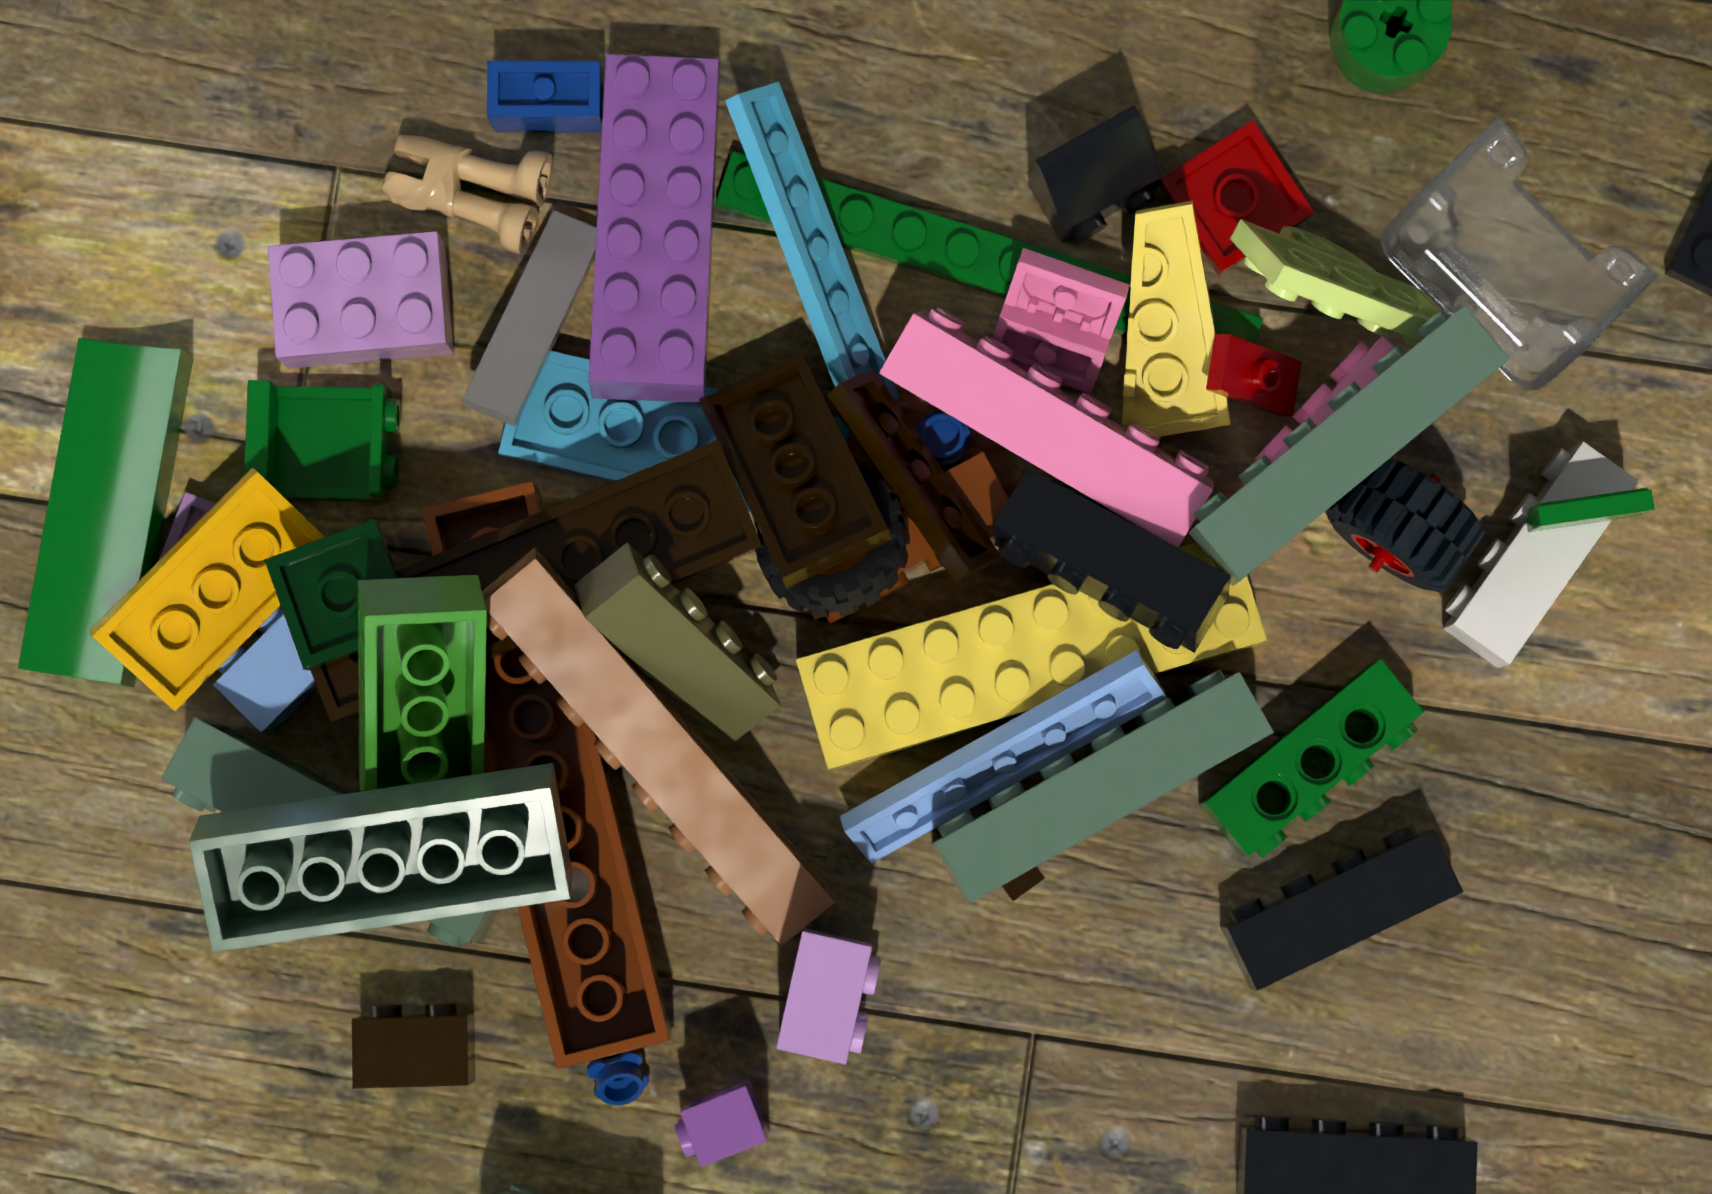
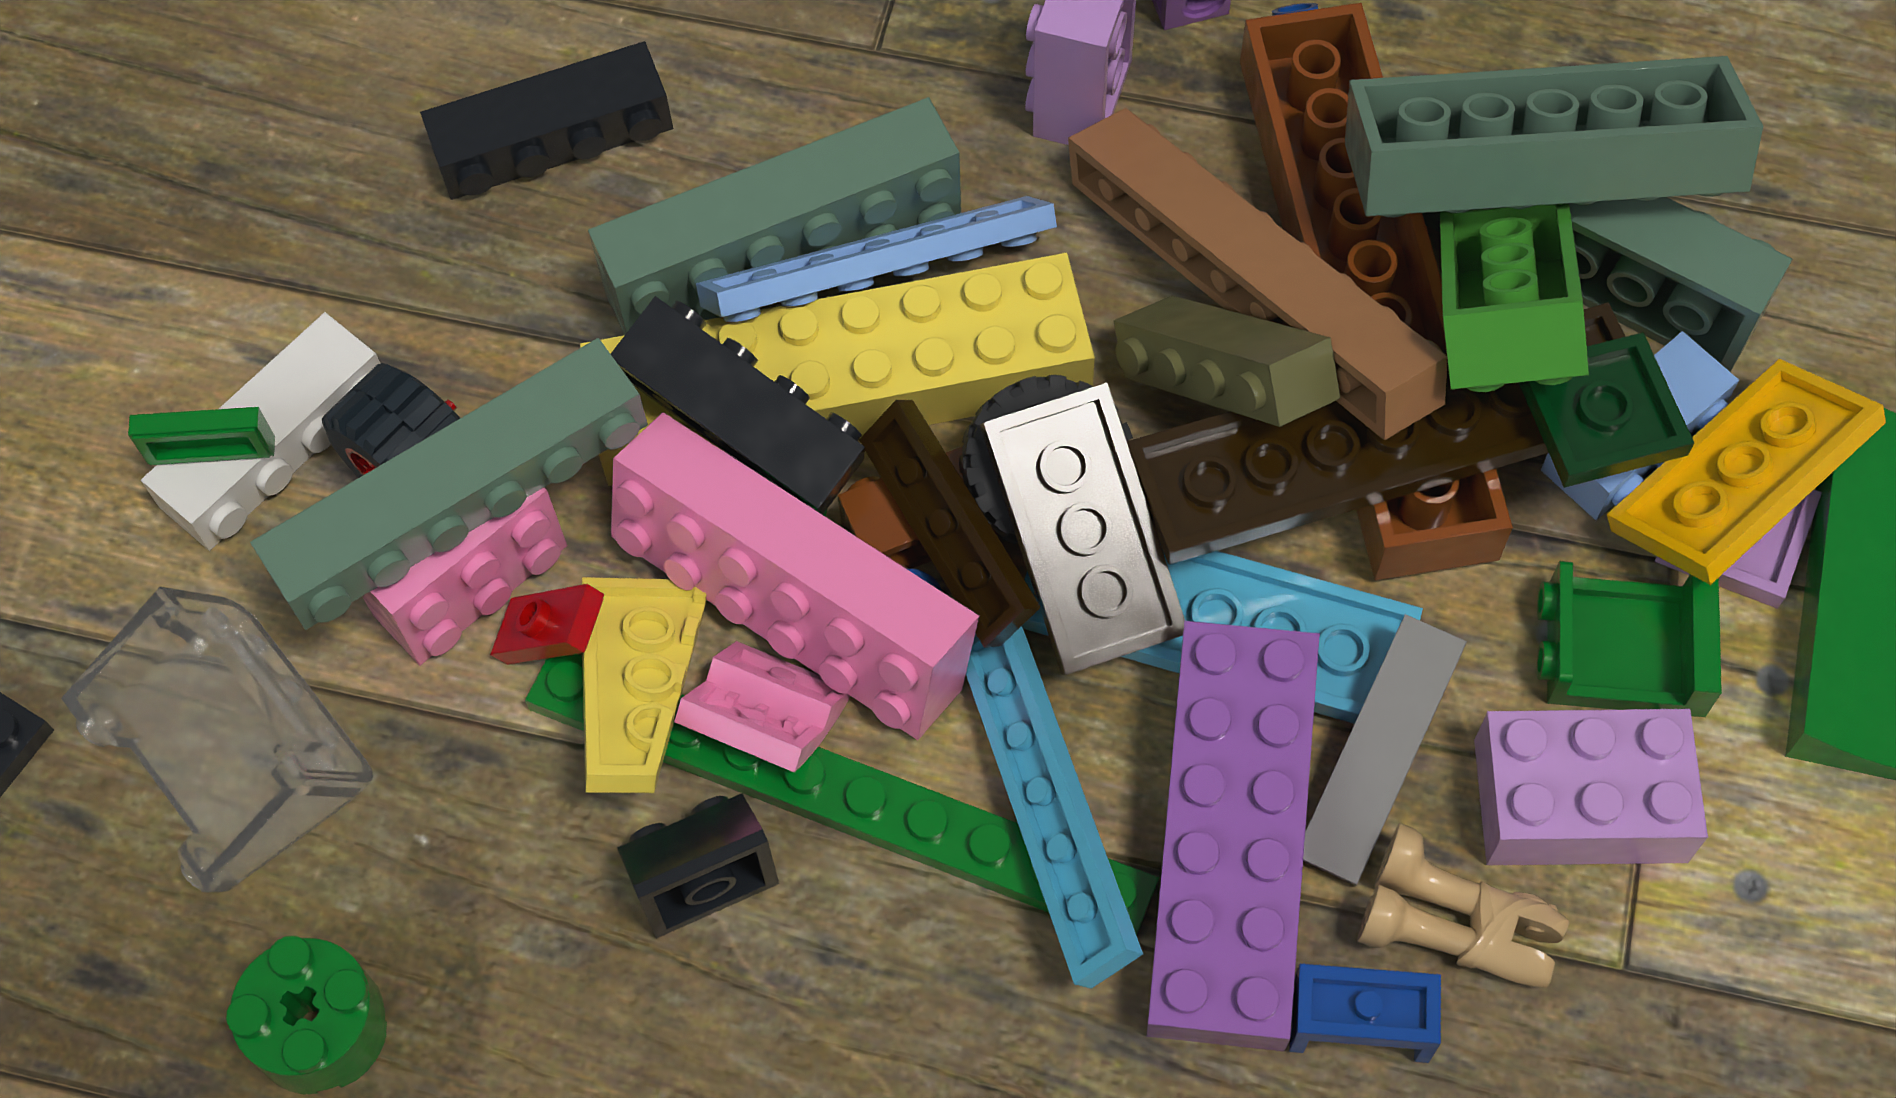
camera: 170 degrees left, 20 degrees down
(413, 1049) = (1505, 40): dark brown brick -> none
(1232, 183) = (533, 838): red plate -> none
(1333, 279) = (434, 687): yellowish green plate -> none
(1371, 692) = (535, 281): green brick -> none

